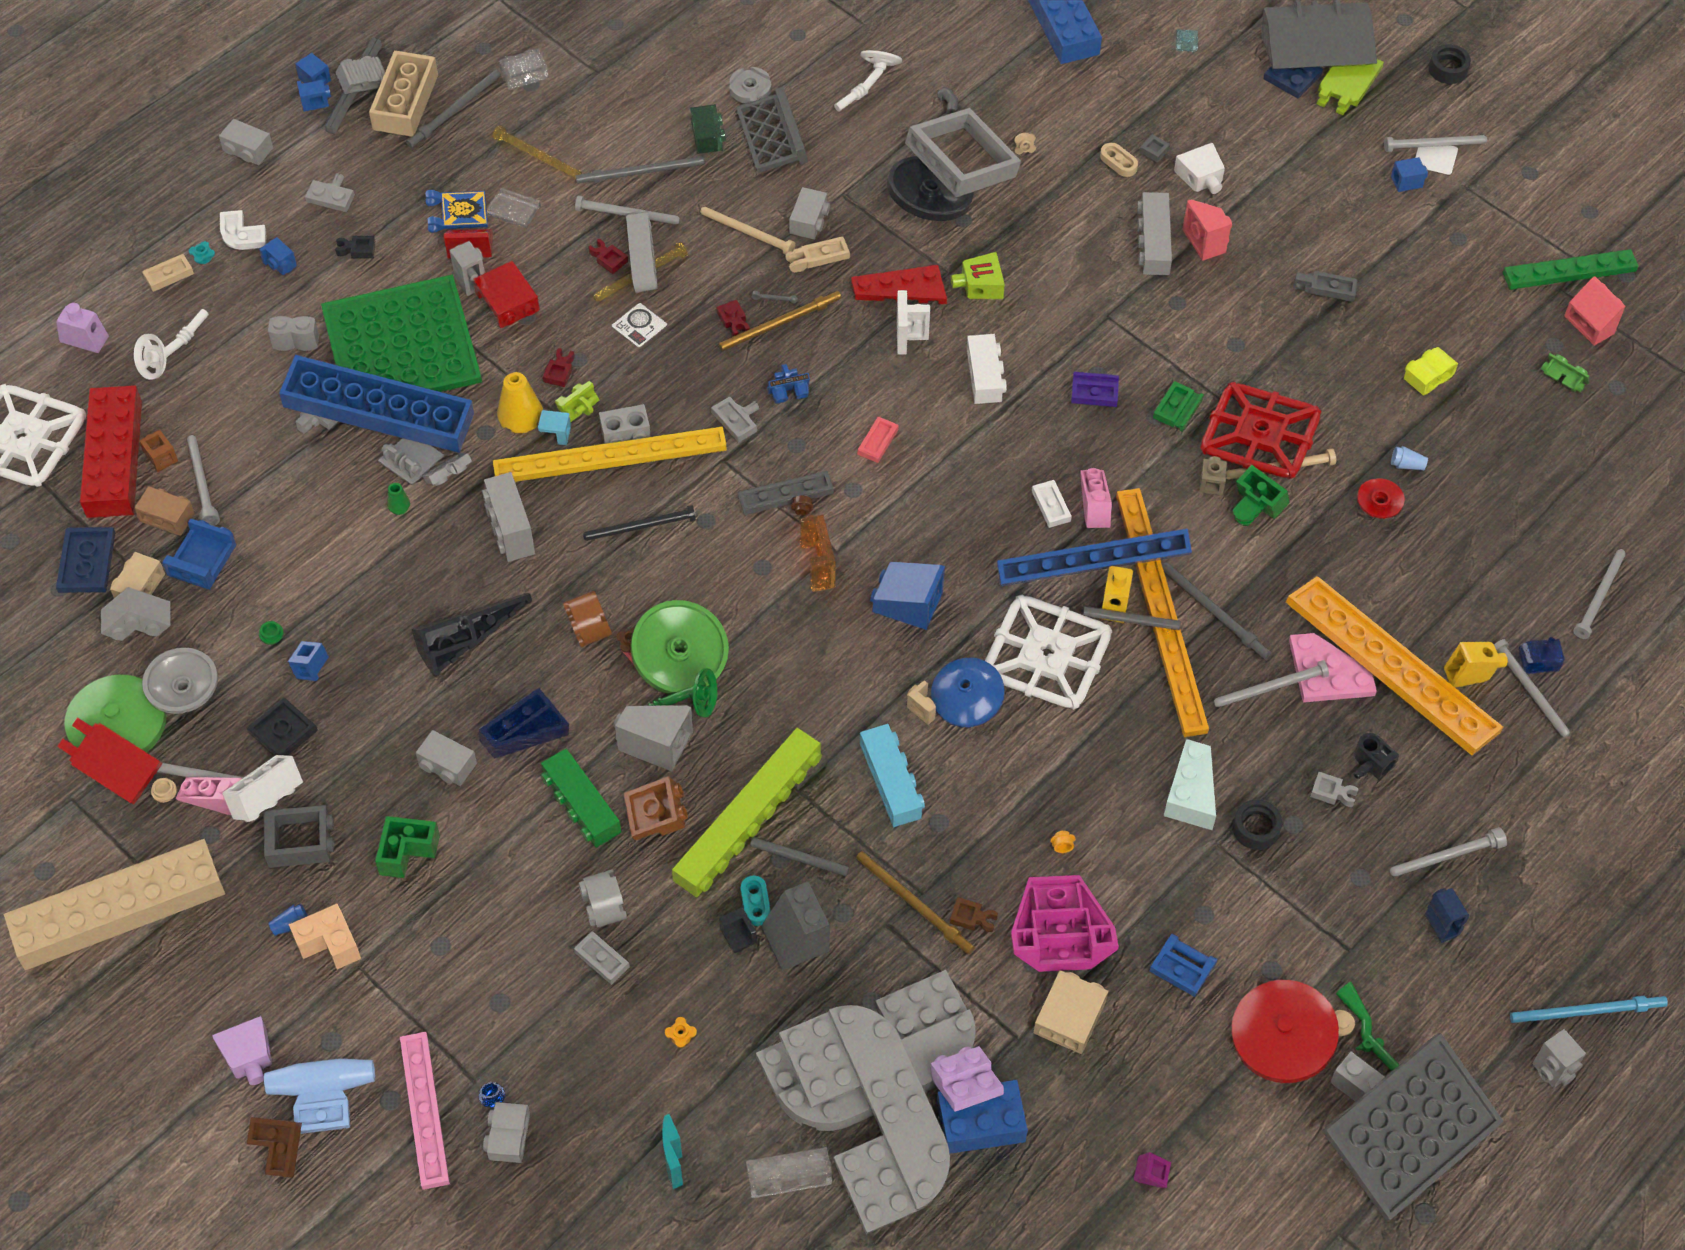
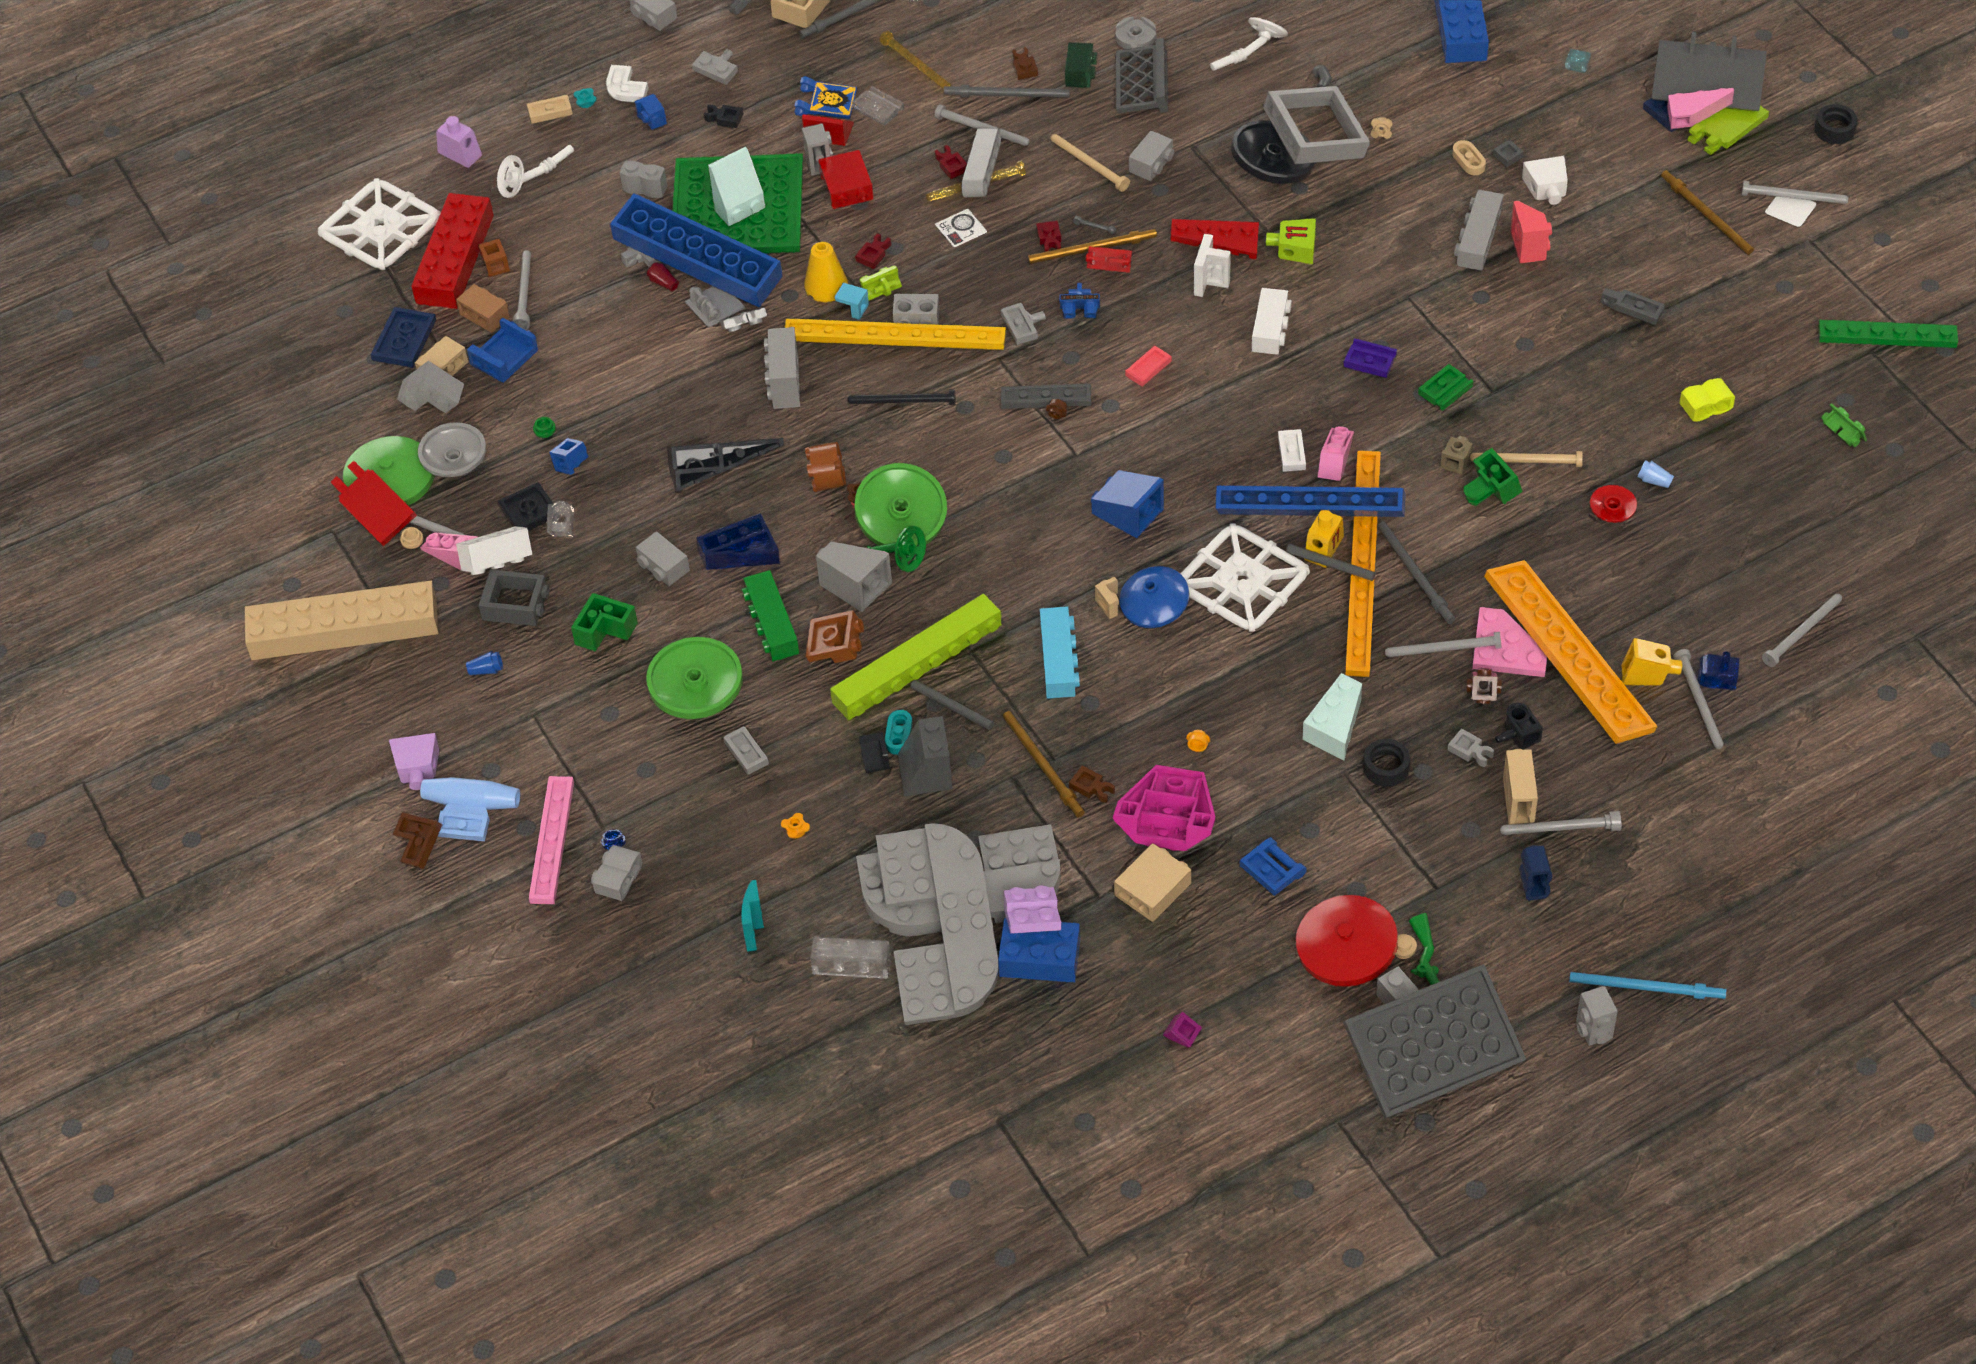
camera: 20 degrees right, 5 degrees down
(322, 746) = (558, 510): none -> clear brick
(324, 931) = (512, 679): light nougat brick -> none
(345, 437) = (662, 276): none -> dark red cone
(397, 499) = (690, 336): green cone -> none
(400, 328) = (736, 187): none -> light aqua slope
(523, 888) = (694, 677): none -> bright green dish
(603, 897) = (761, 700): light grey brick -> none
(648, 139) = (1023, 65): none -> reddish brown plate
(802, 332) = (1109, 259): none -> red hinge
(818, 254) = (1147, 193): tan hinge -> none
(822, 568) = (1054, 460): clear orange panel -> none
(1269, 440) = (1505, 417): red plate -> none
(1314, 73) = (1694, 107): none -> bright pink slope
(1327, 154) = (1679, 187): none -> pearl gold bar
(1332, 723) = (1487, 694): none -> reddish brown brick
(1400, 825) = (1520, 786): none -> tan brick
(1409, 174) = (1754, 218): blue brick -> none
(1595, 311) = (1893, 374): coral slope -> none

